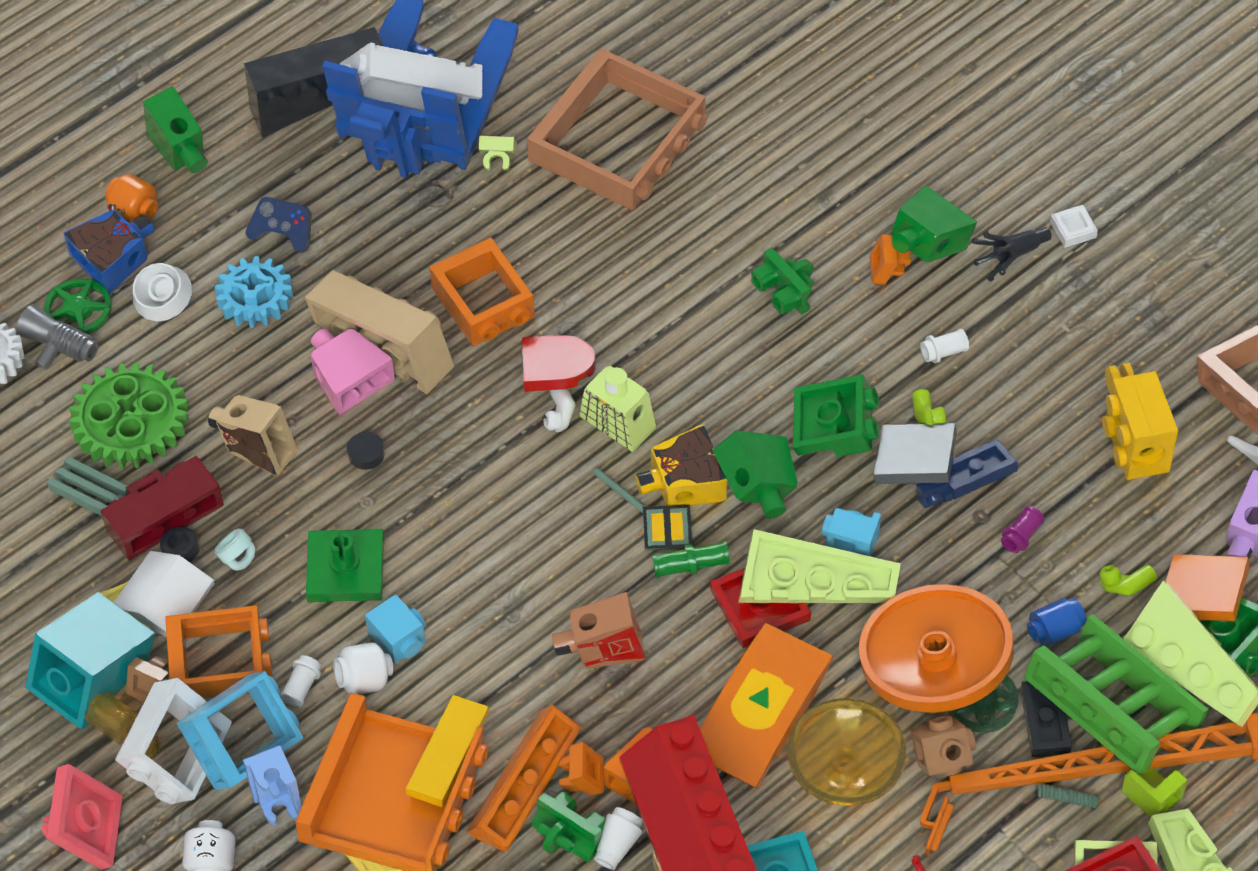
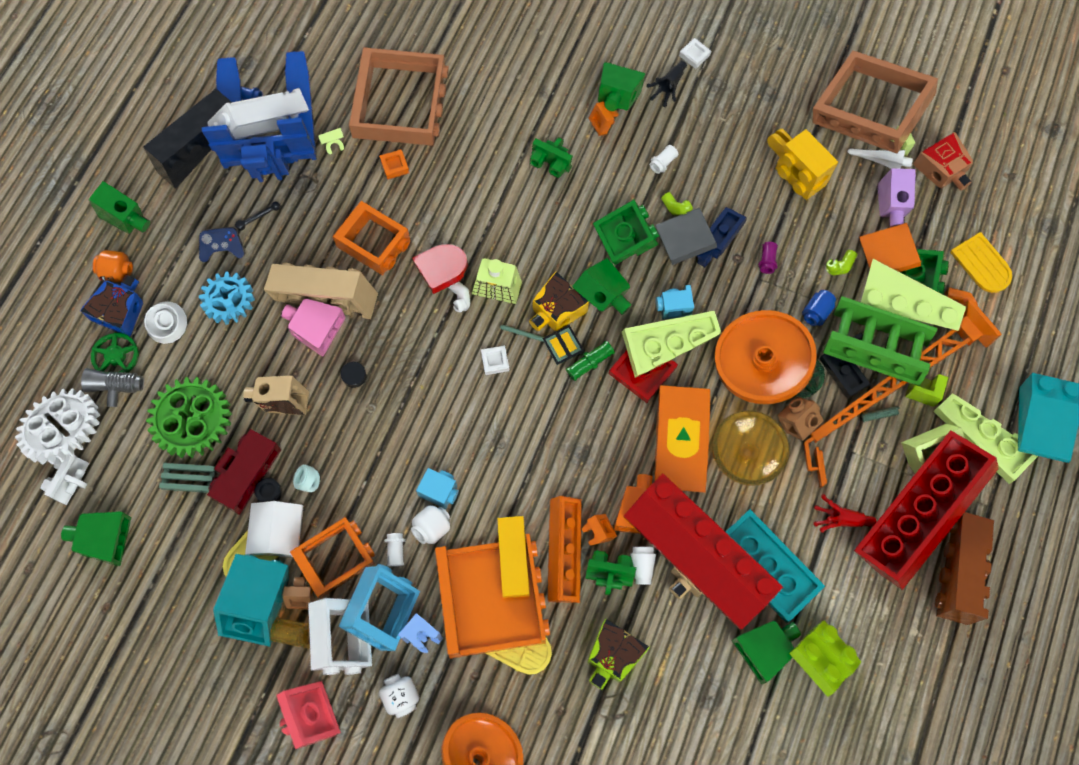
camera: 30 degrees left, 15 degrees up
(322, 213) = (240, 225): none -> black hinge
(345, 565) = (381, 457): green tile -> none
(563, 508) = (495, 360): none -> white tile
(564, 212) = (394, 164): none -> orange plate
(603, 633) = (571, 426): nougat torso -> none

